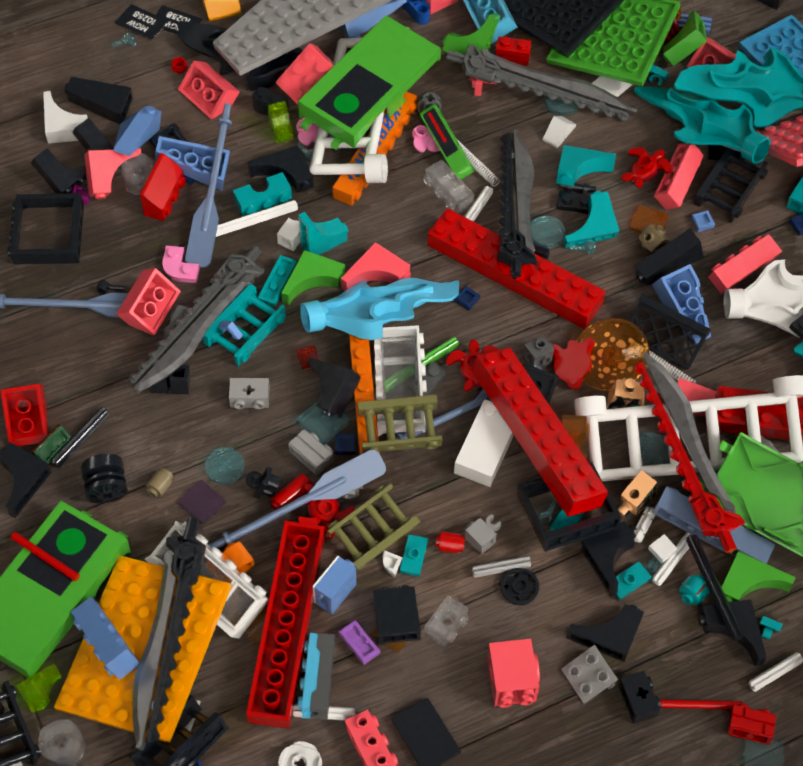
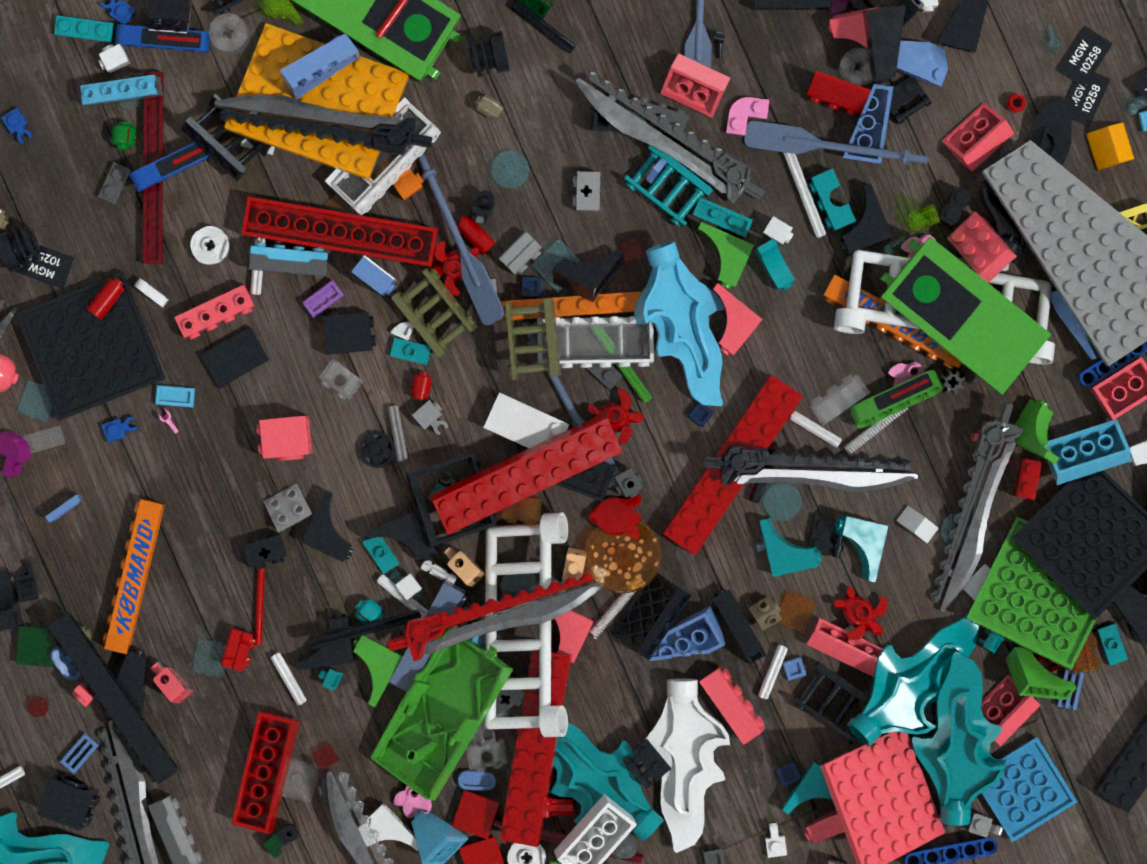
camera: 85 degrees right, 30 degrees up
(114, 138) = (883, 38): none -> black slope
(202, 501) = (472, 148): clear purple piece -> none
(711, 237) = (772, 672): none -> white axle

